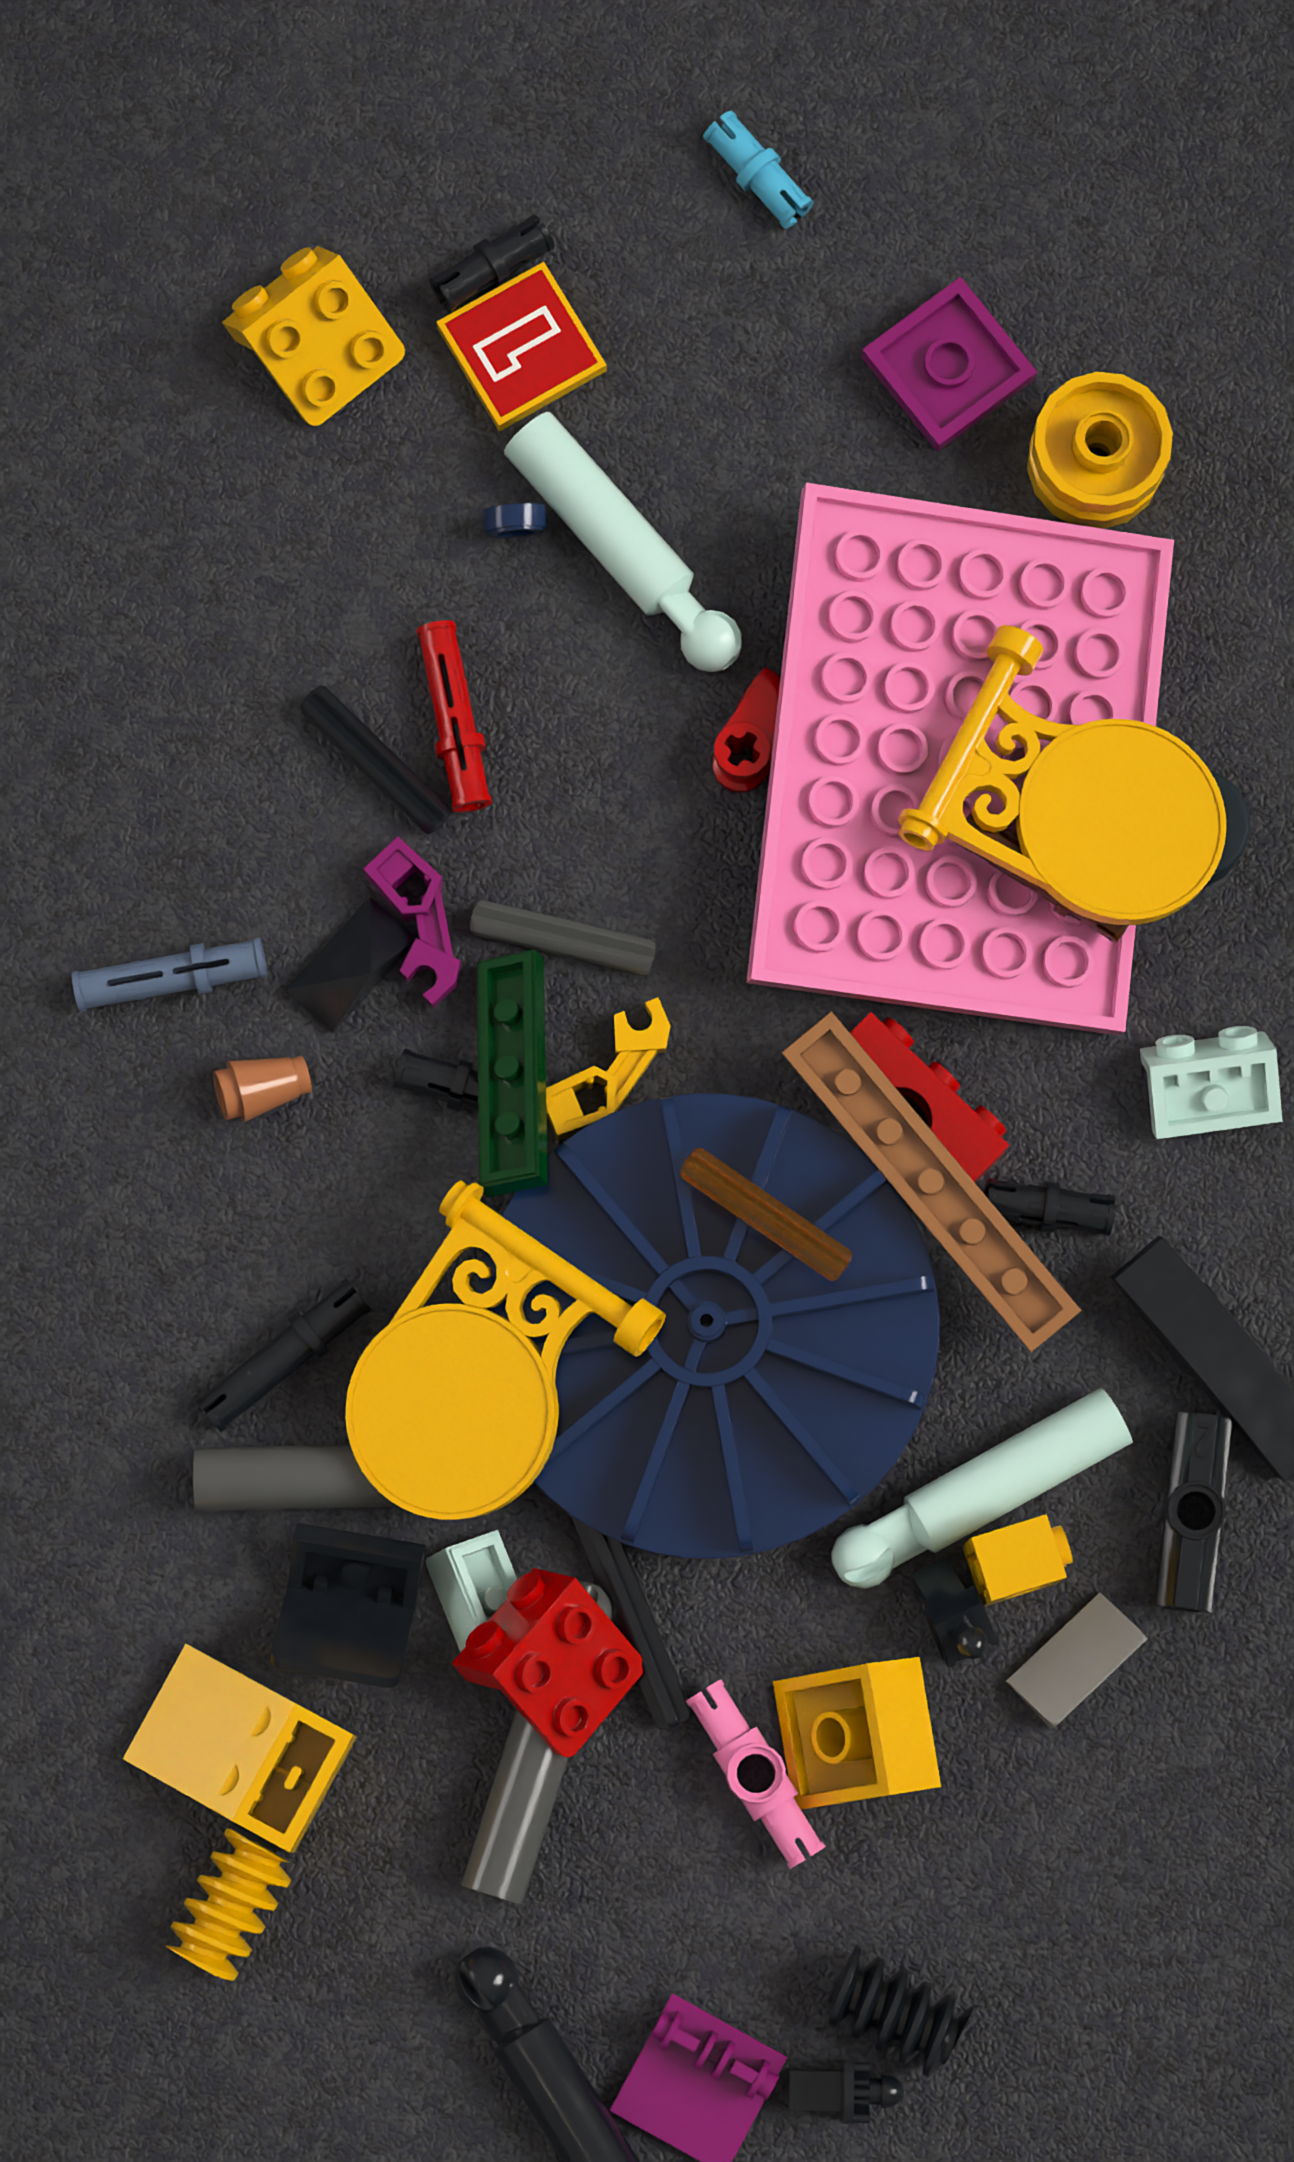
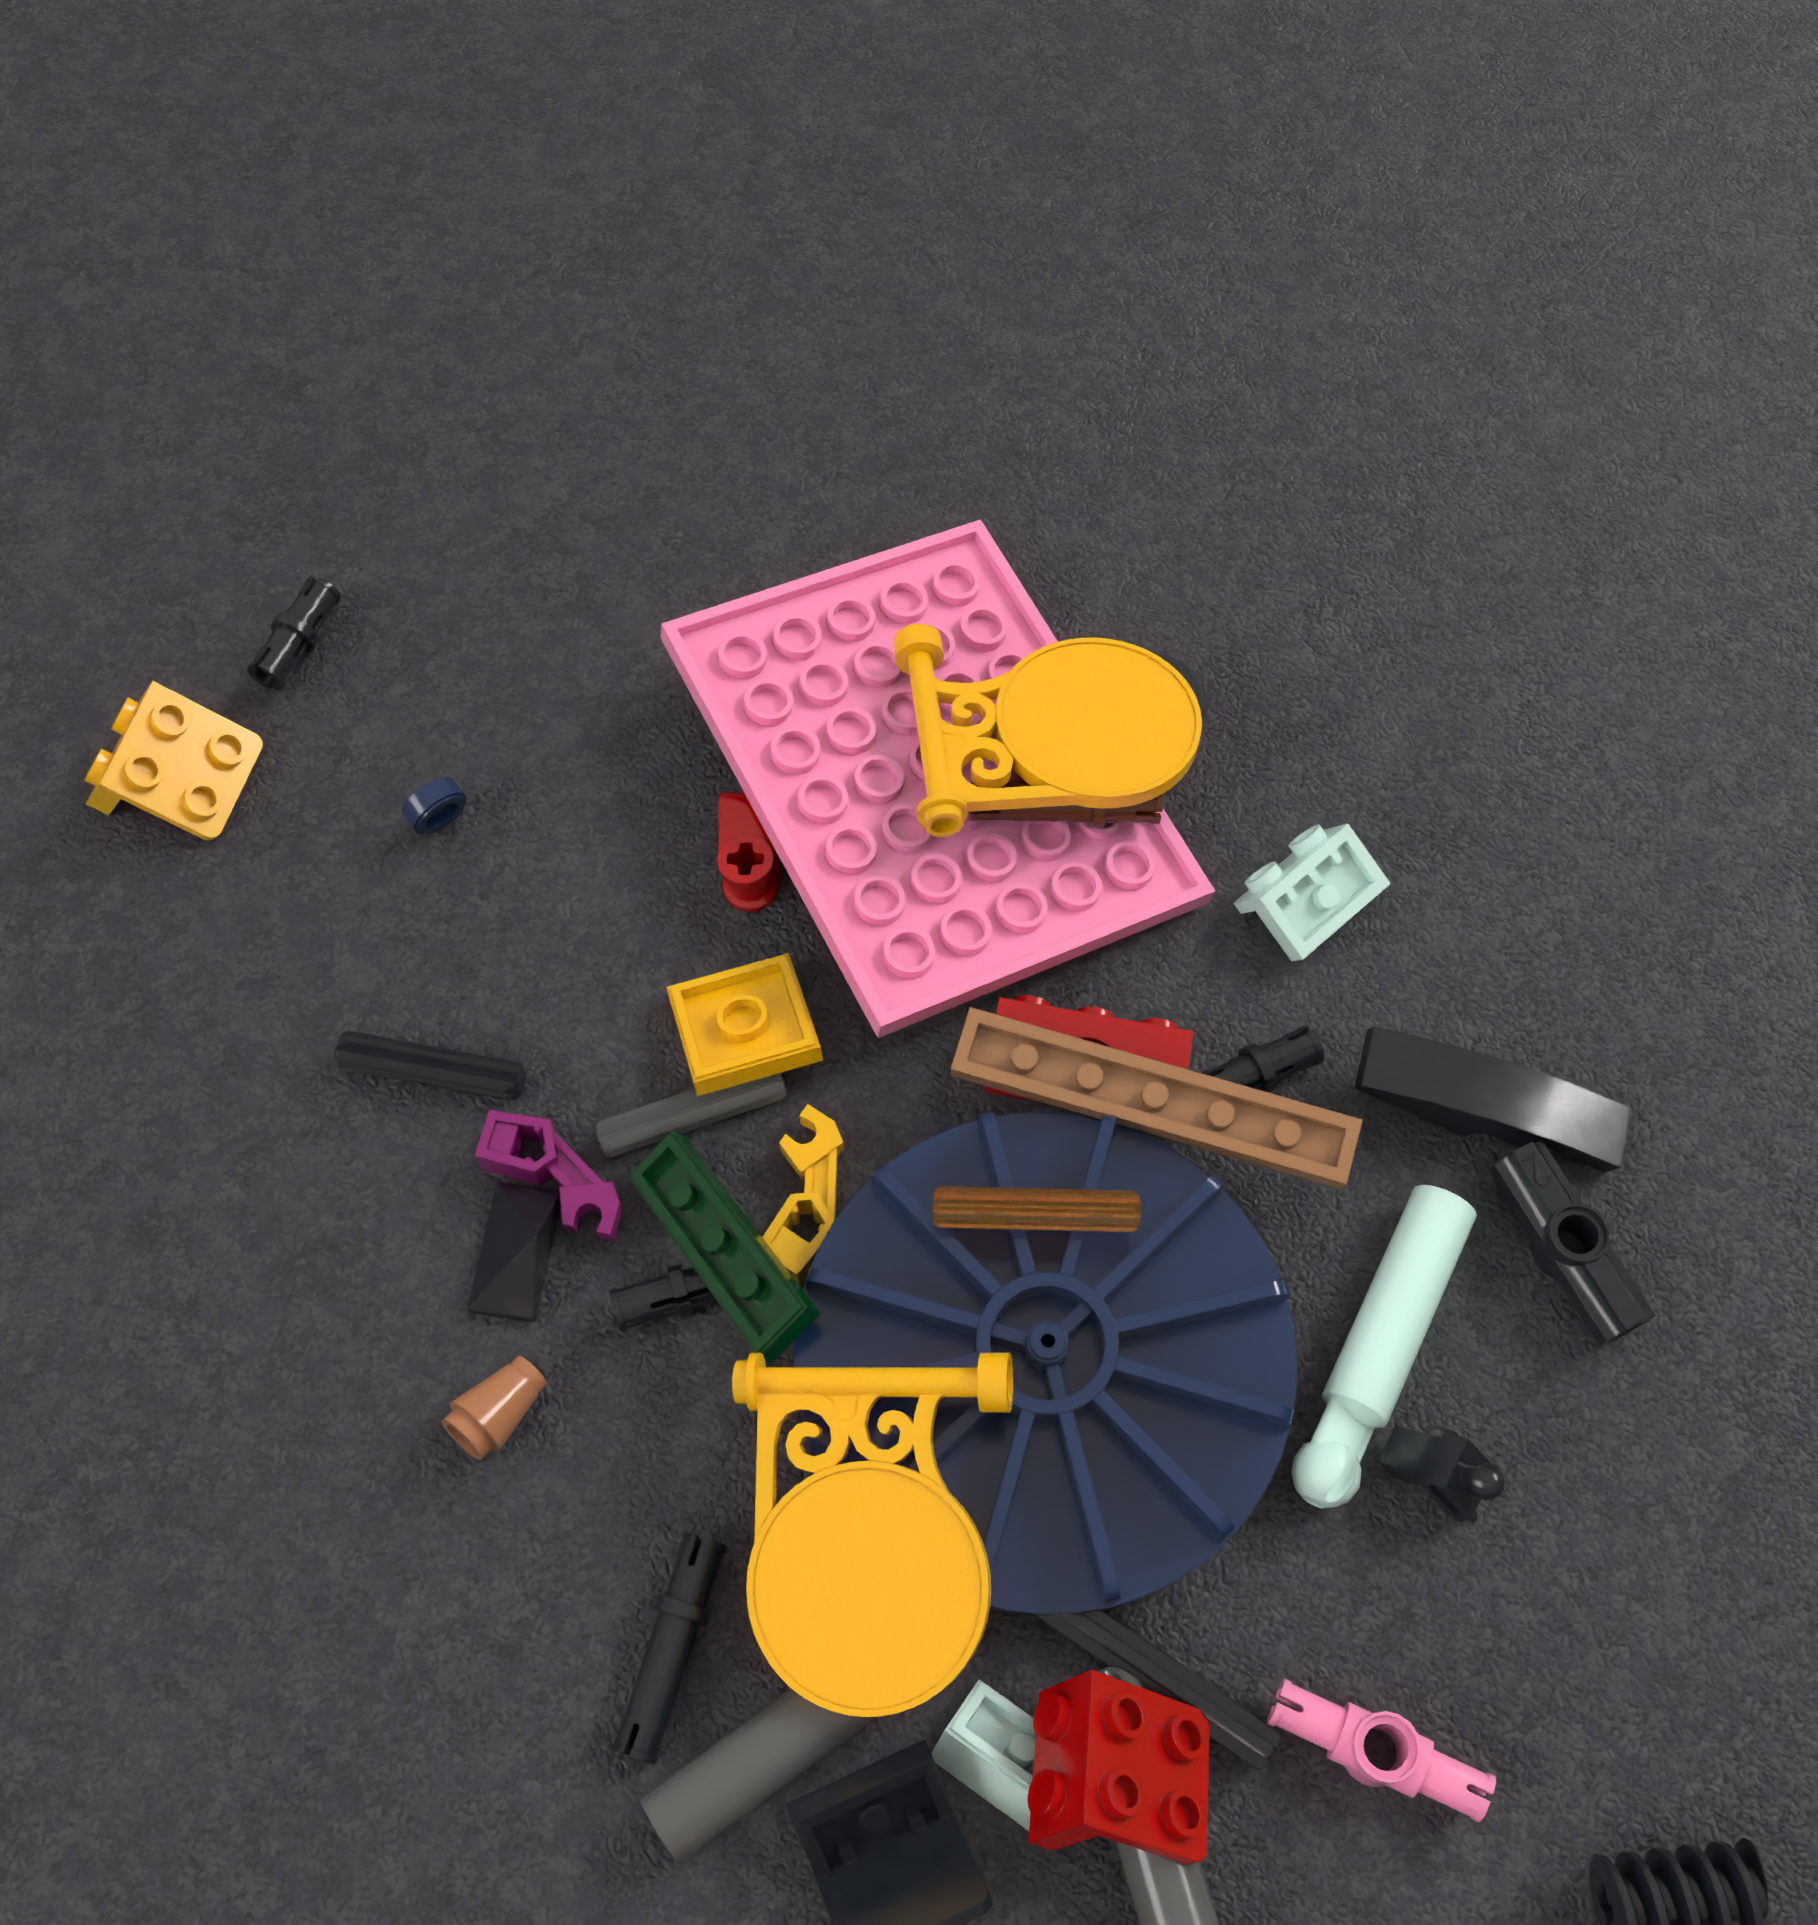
camera: 30 degrees left, 15 degrees down
(95, 987) = (347, 1362): sand blue pin -> none
(467, 786) = (525, 1034): red pin -> none
(521, 346) = (358, 681): red tile -> none
(621, 539) = (534, 768): light aqua piece -> none
(651, 891) = (744, 1024): none -> yellow tile
(758, 169) = (472, 455): medium azure pin -> none
(857, 1733) = (1442, 1644): yellow slope -> none
(949, 364) = (716, 502): magenta plate -> none
(1017, 1559) = (1468, 1378): yellow brick -> none
(1076, 1660) = (1575, 1442): light grey slope -> none
(1104, 414) = (876, 484): yellow wheel -> none

